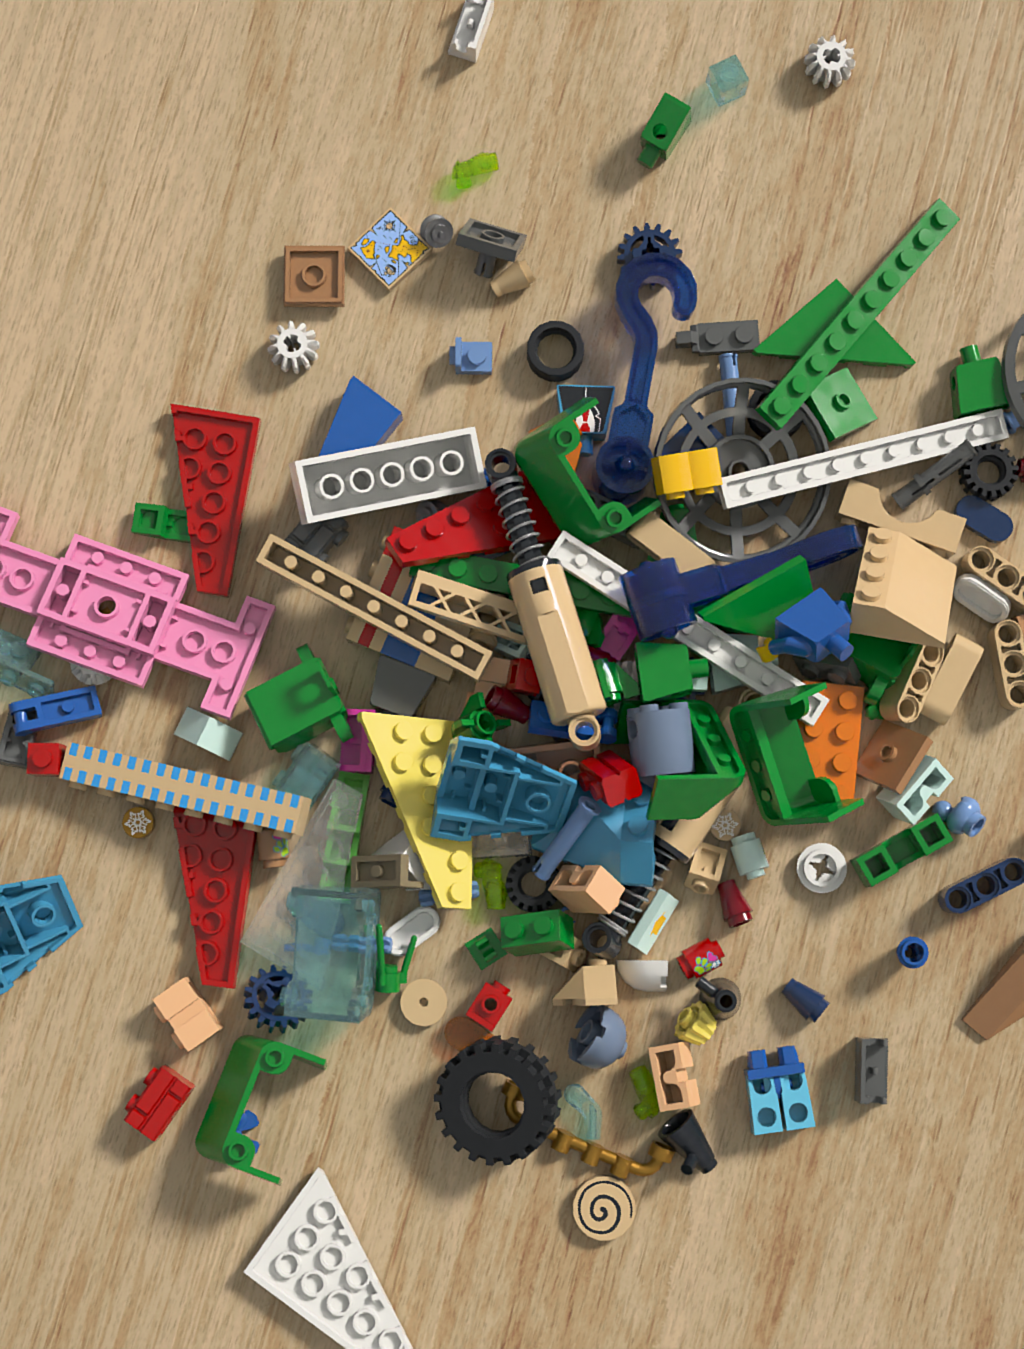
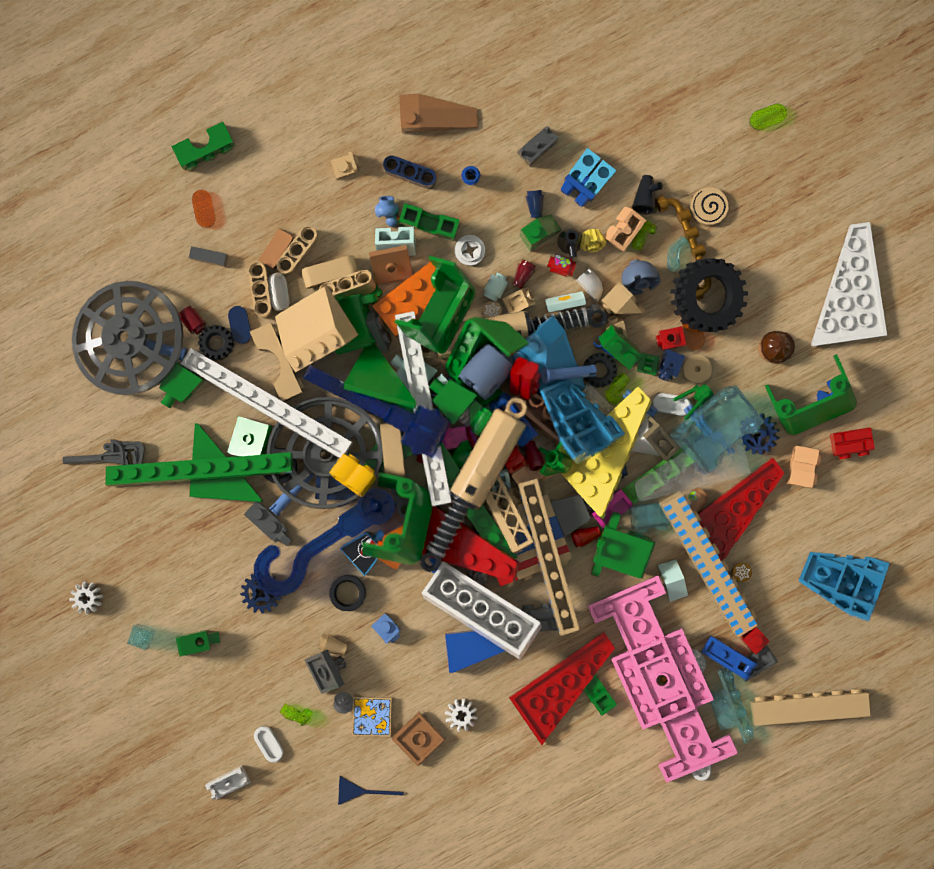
camera: 130 degrees left, 5 degrees up
(332, 150) = (349, 790): none -> dark blue piece
(357, 680) = (584, 536): none -> red cone
(358, 1123) = (776, 347): none -> reddish brown piece
(458, 971) = (670, 365): none -> dark blue hinge
(471, 110) = (268, 744): none -> white tile
(586, 889) = (581, 343): light nougat brick -> none
(767, 972) = (539, 231): none -> green slope
(811, 630) = (373, 350): blue torso -> none
(934, 474) = (250, 367): dark grey pin -> none
(964, 244) = (115, 453): none -> dark grey piece

